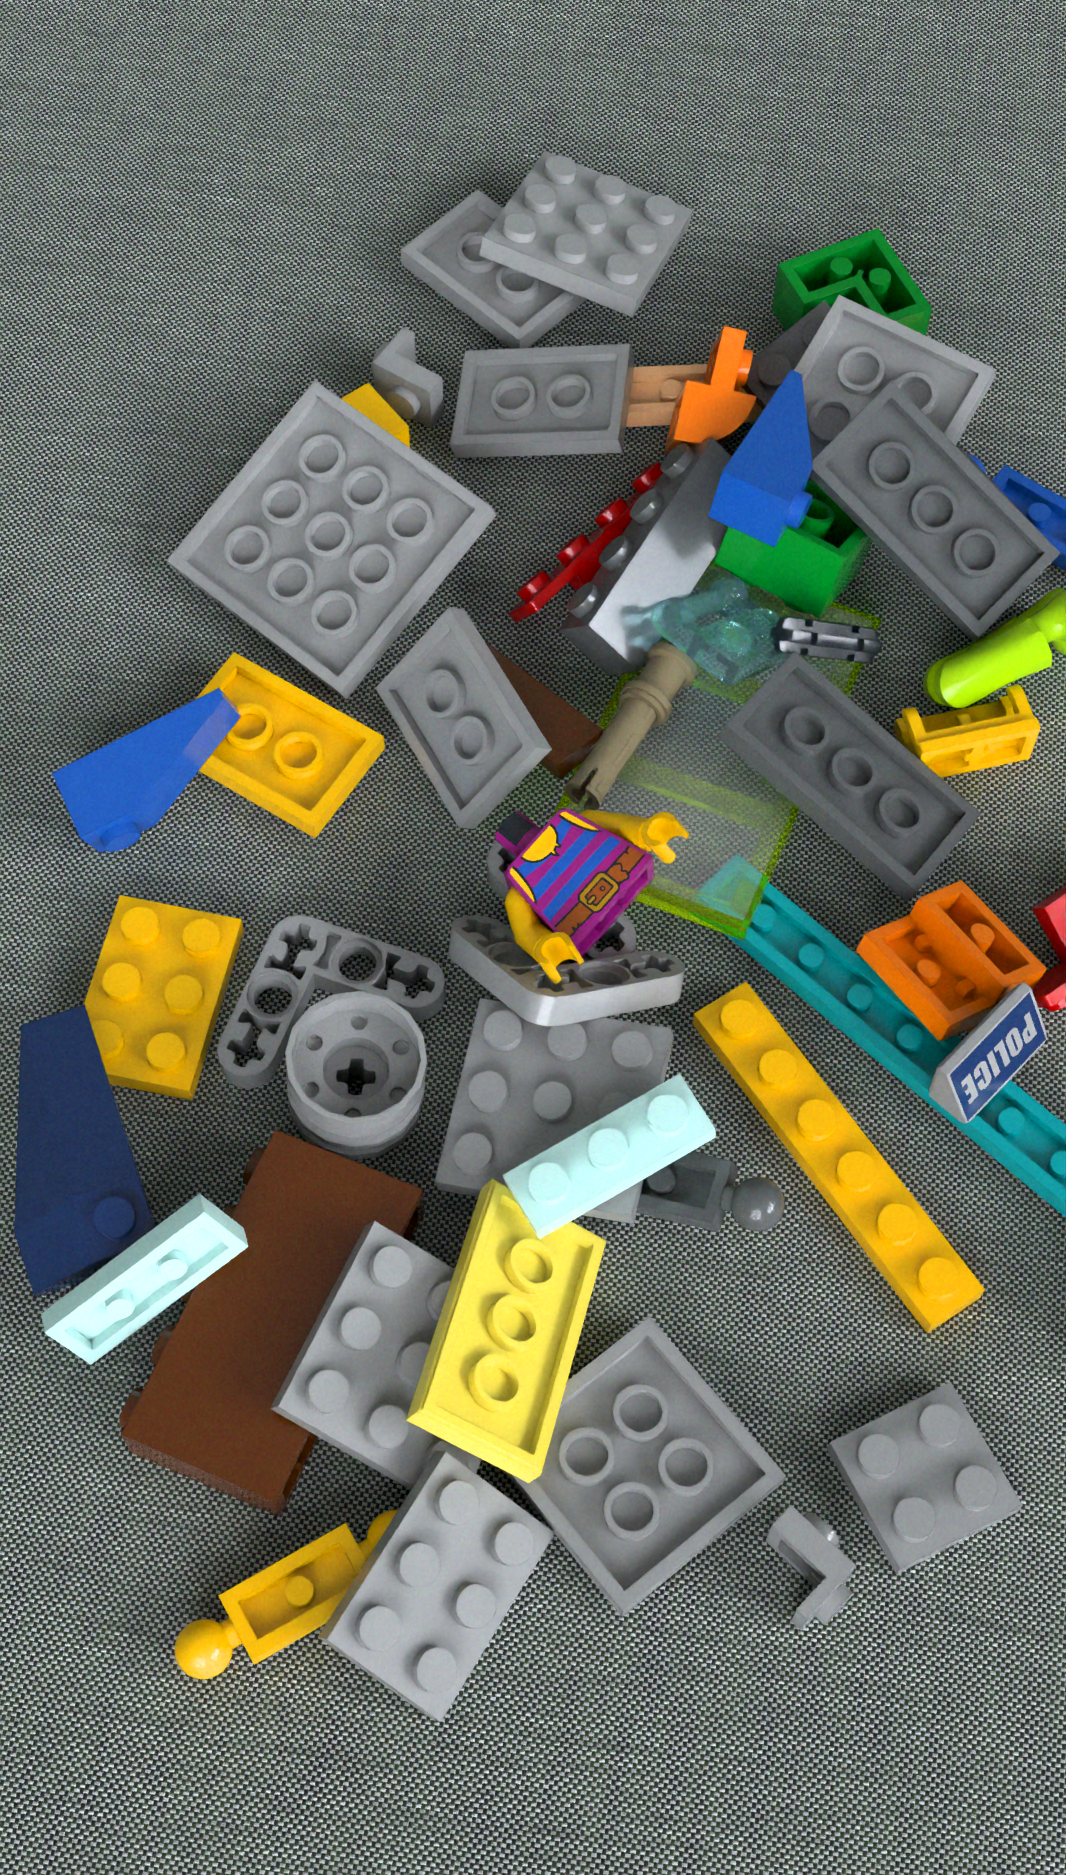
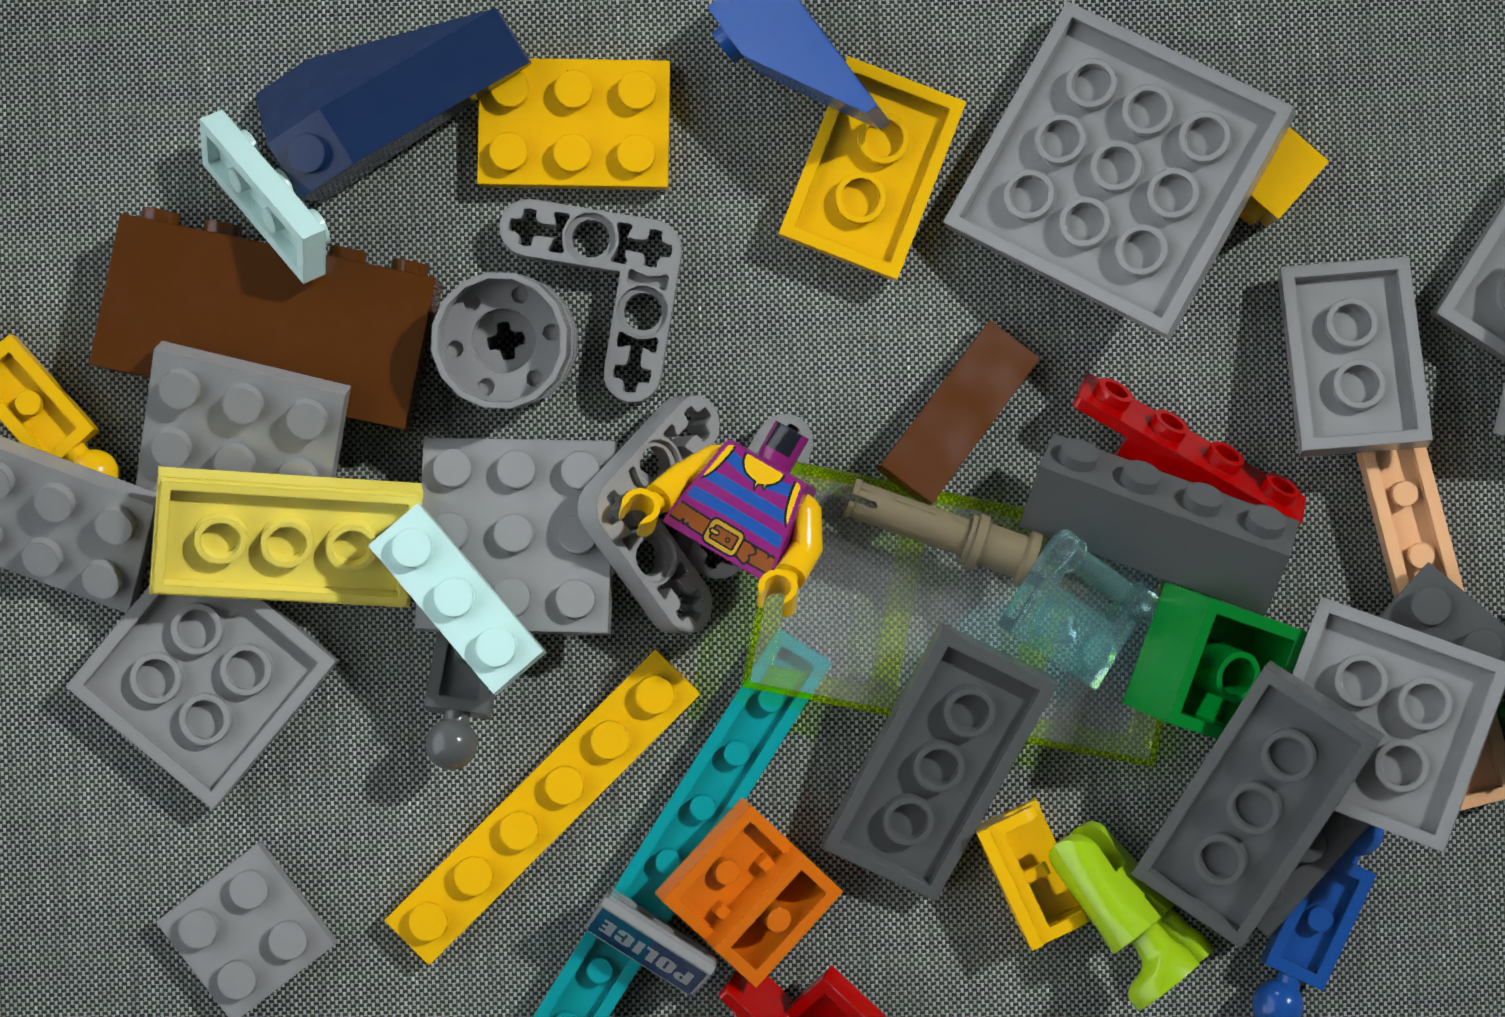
camera: 75 degrees right, 25 degrees up
(406, 385) = (1345, 204): light grey bracket -> none
(462, 718) = (927, 355): light grey plate -> none
(716, 405) = (1353, 547): orange brick -> none
(769, 471) = (1250, 630): blue slope -> none
(812, 1551) = (153, 842): light grey bracket -> none
(825, 639) = (1090, 714): black axle -> none

